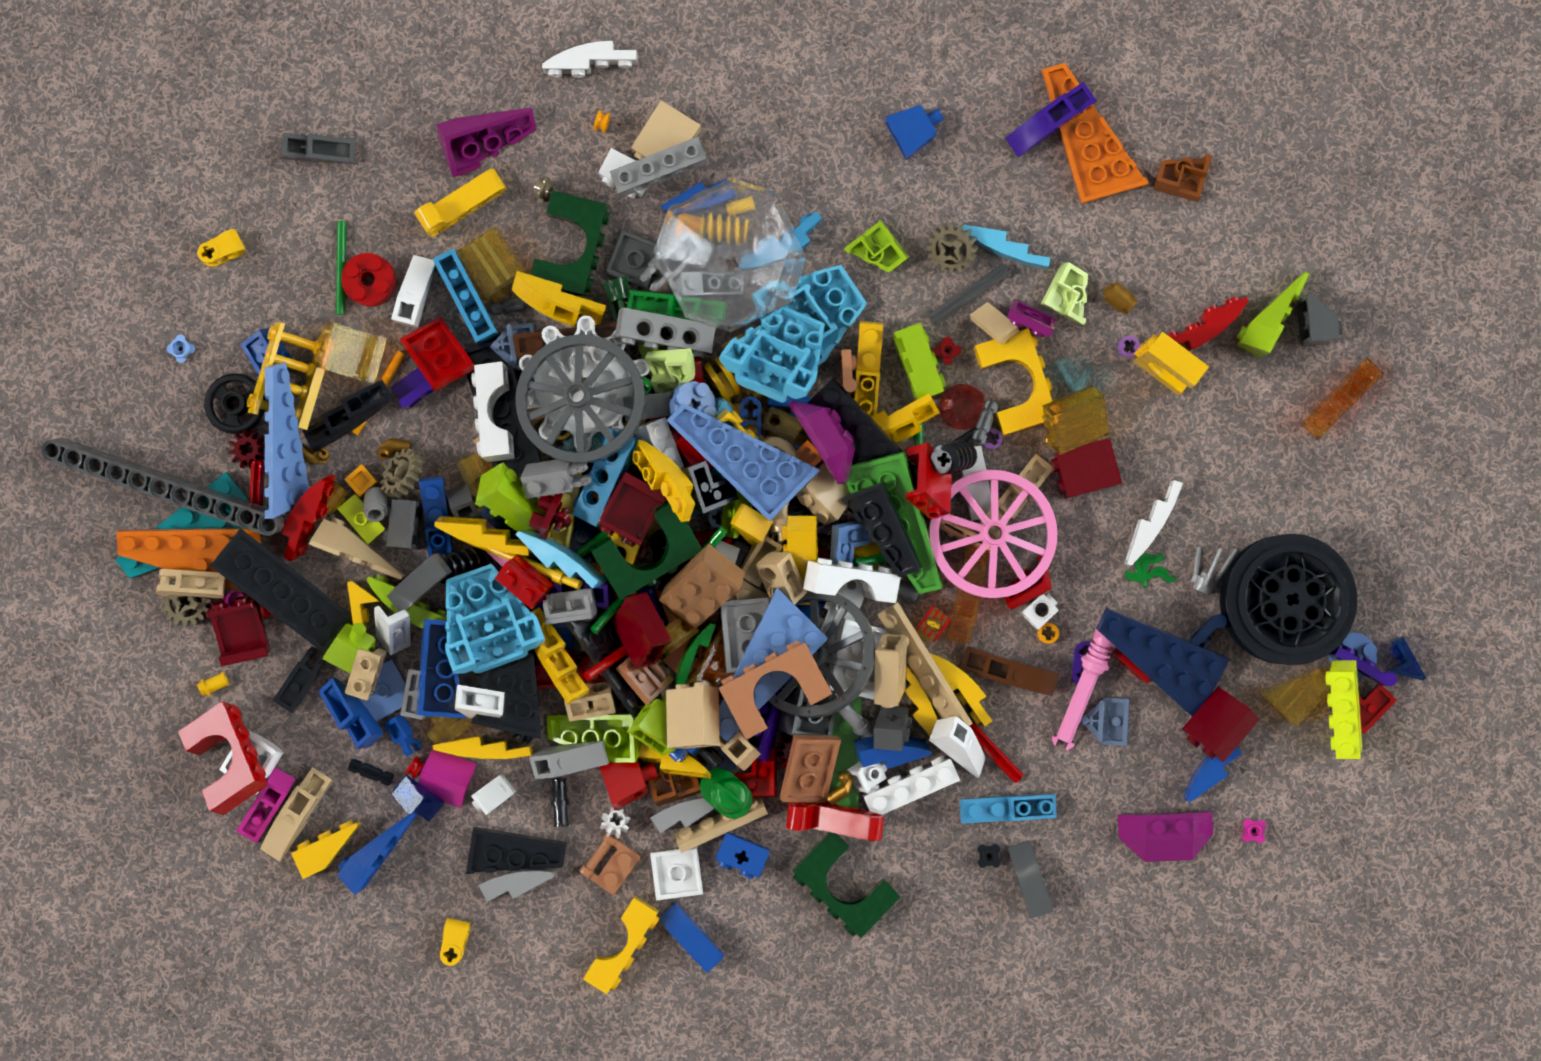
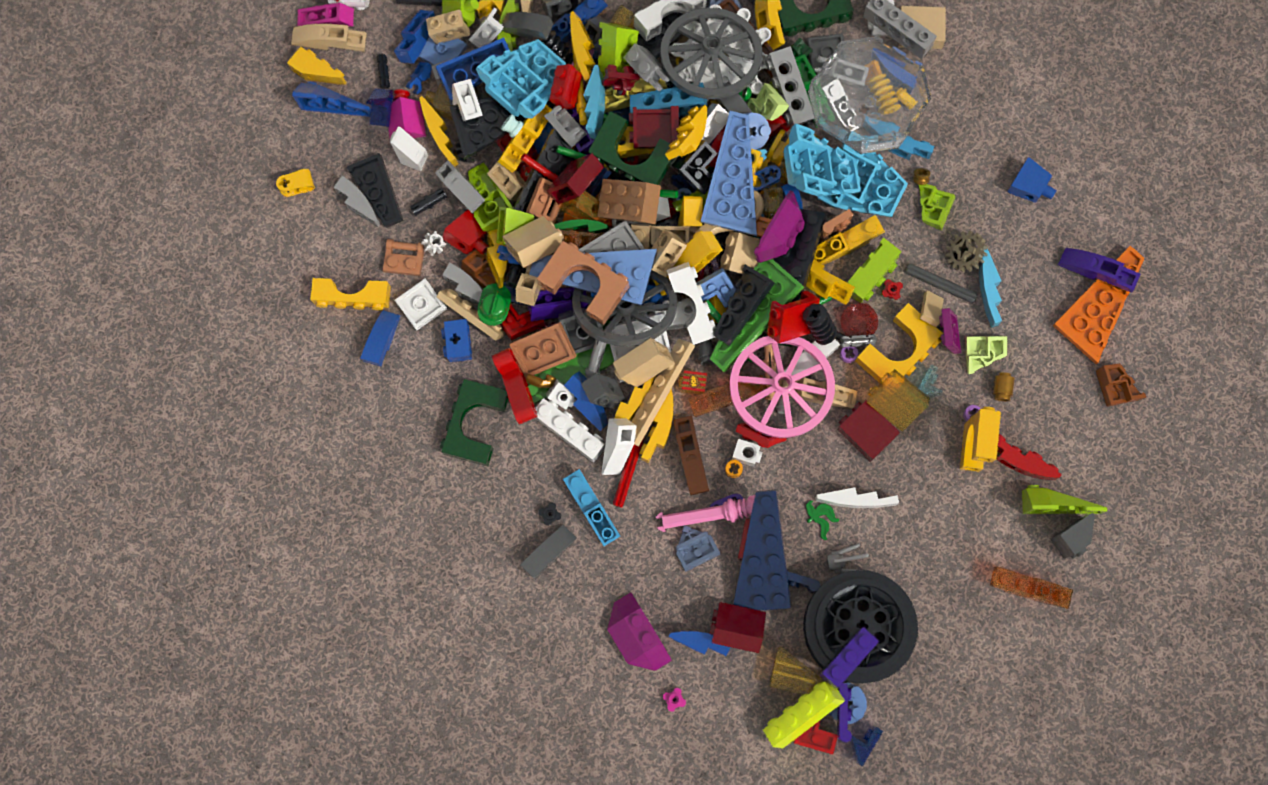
camera: 70 degrees right, 10 degrees down
(536, 666) = (512, 126): none -> light aqua wheel
(833, 242) = (921, 176): none -> pearl gold bush
(1326, 643) = (849, 658): none -> dark purple arch

